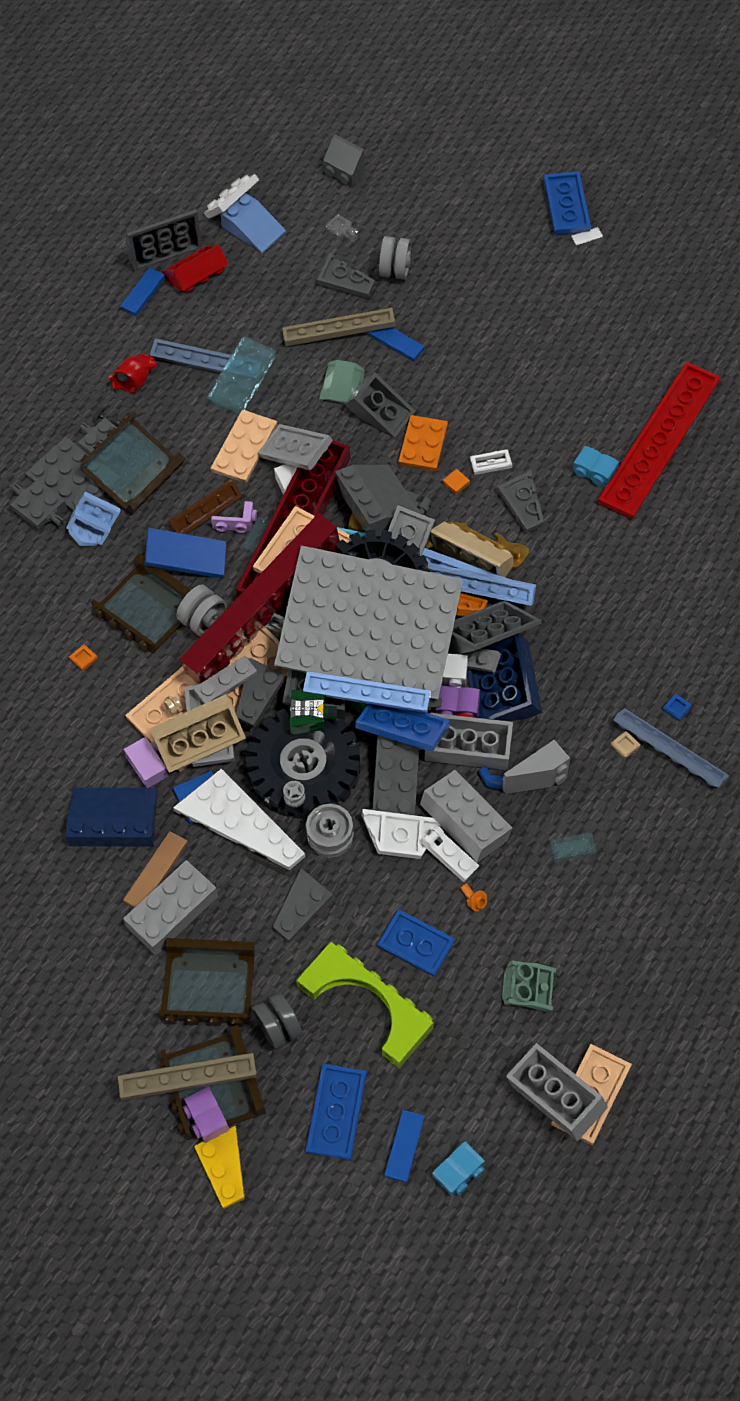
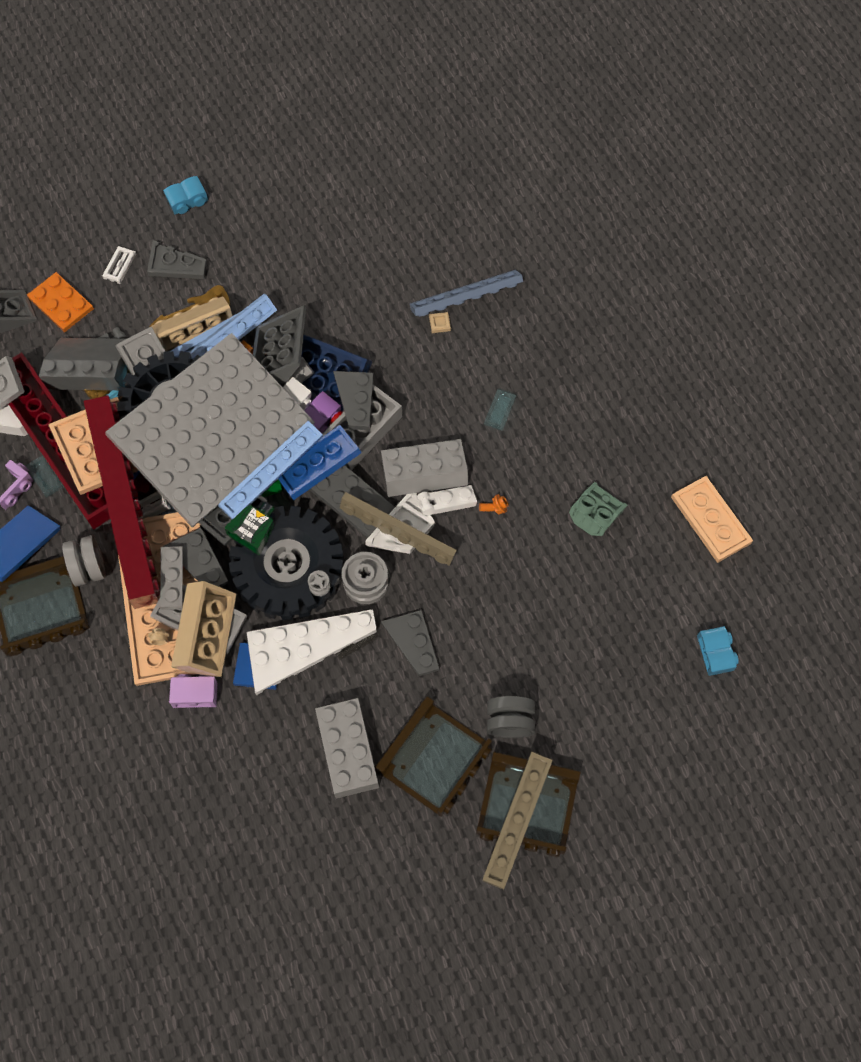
camera: 60 degrees left, 5 degrees up
(83, 657) = (47, 689): orange tile -> none
(112, 817) = (224, 750): dark blue slope -> none
(156, 869) = (301, 743): medium nougat tile -> none
(206, 1115) = (556, 824): medium lavender brick -> none
(223, 1167) = (603, 837): yellow wing -> none
(336, 1112) = (611, 718): blue tile -> none
(337, 968) = (573, 618): lime arch -> none
(387, 834) = (403, 532): none -> dark tan plate
(404, 1146) = (672, 681): blue tile -> none
(416, 943) = (505, 571): blue tile -> none
(456, 481) = (116, 299): orange tile -> none
(488, 718) = (356, 396): none -> dark grey wing
(489, 780) = (404, 433): blue arm -> none
(538, 771) = (425, 385): light grey slope -> none
(557, 1092) = (703, 538): light grey brick -> none
(659, 440) = (198, 141): red plate -> none
(677, 707) = (433, 269): blue tile -> none

